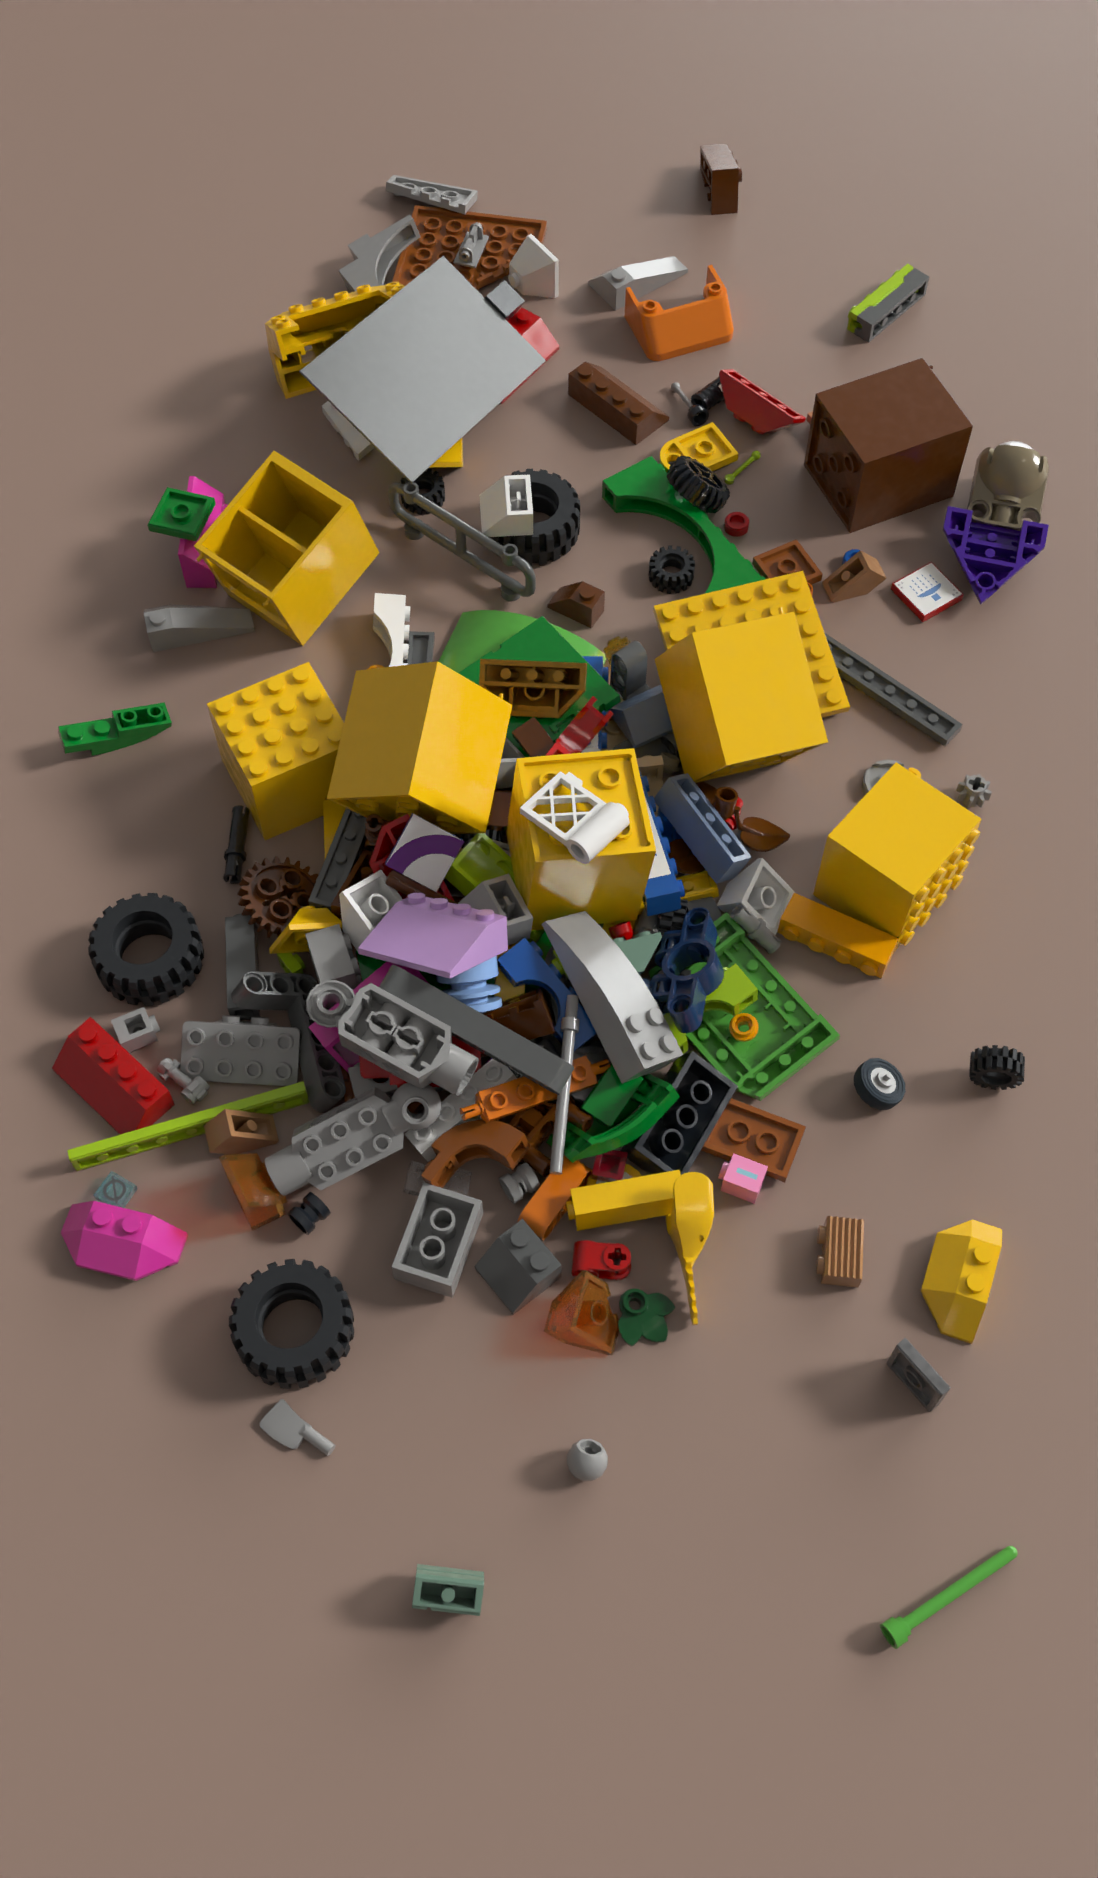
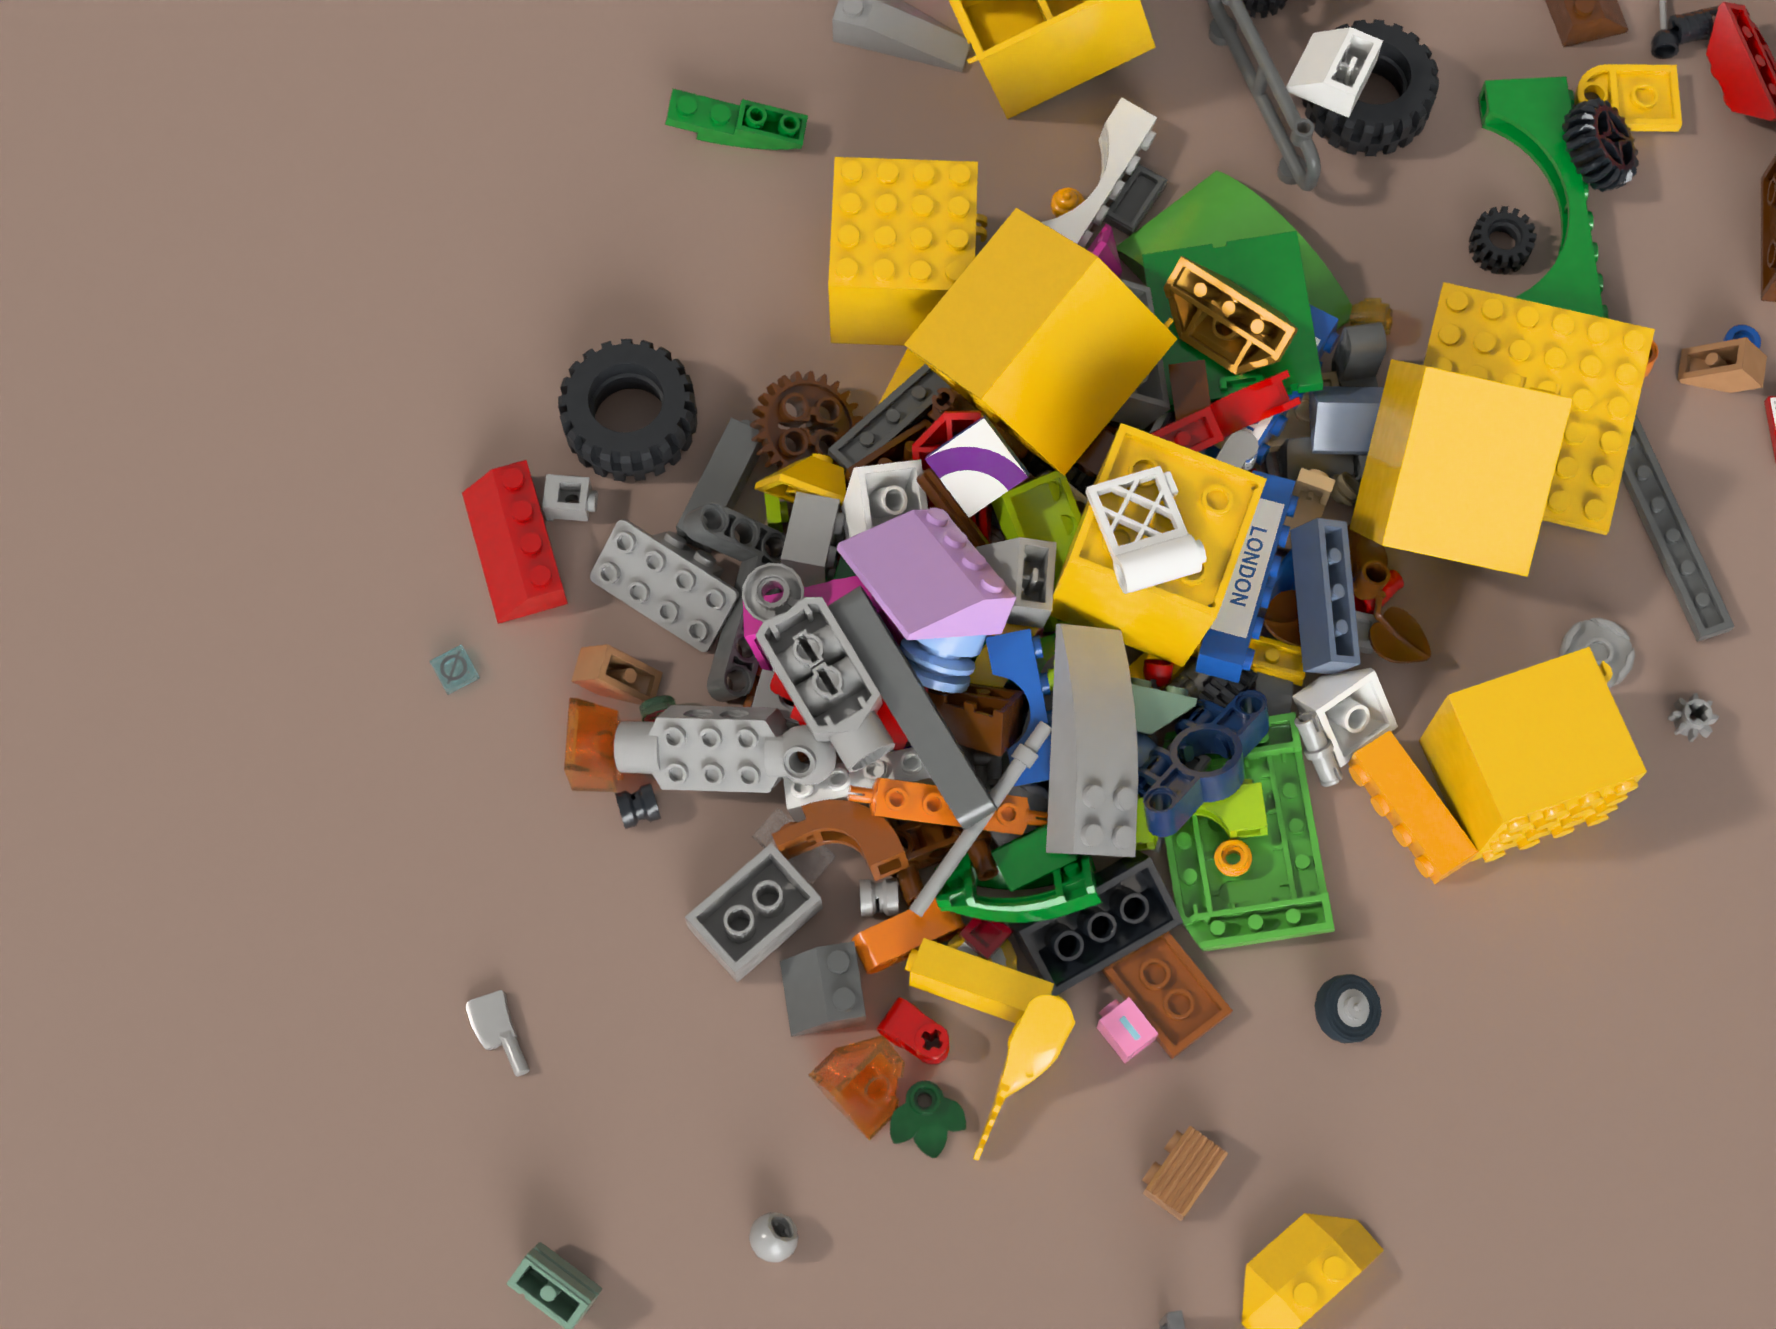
camera: 30 degrees right, 10 degrees up
(121, 1240) = (430, 728): dark pink wedge -> none
(182, 1127) = (562, 637): lime tile -> none
(193, 1090) = (595, 599): light grey bar -> none
(235, 853) = (787, 344): black pin -> none
(279, 1286) = (525, 878): black tyre -> none
(282, 1138) = (655, 706): none -> clear green tile
(579, 602) = (1361, 228): reddish brown slope -> none
(729, 478) = (1653, 150): lime hinge -> none
(736, 524) = (1622, 218): red tile -> none
(787, 560) = (1651, 304): dark orange plate -> none
(997, 1067) = (1495, 1066): black tyre -> none

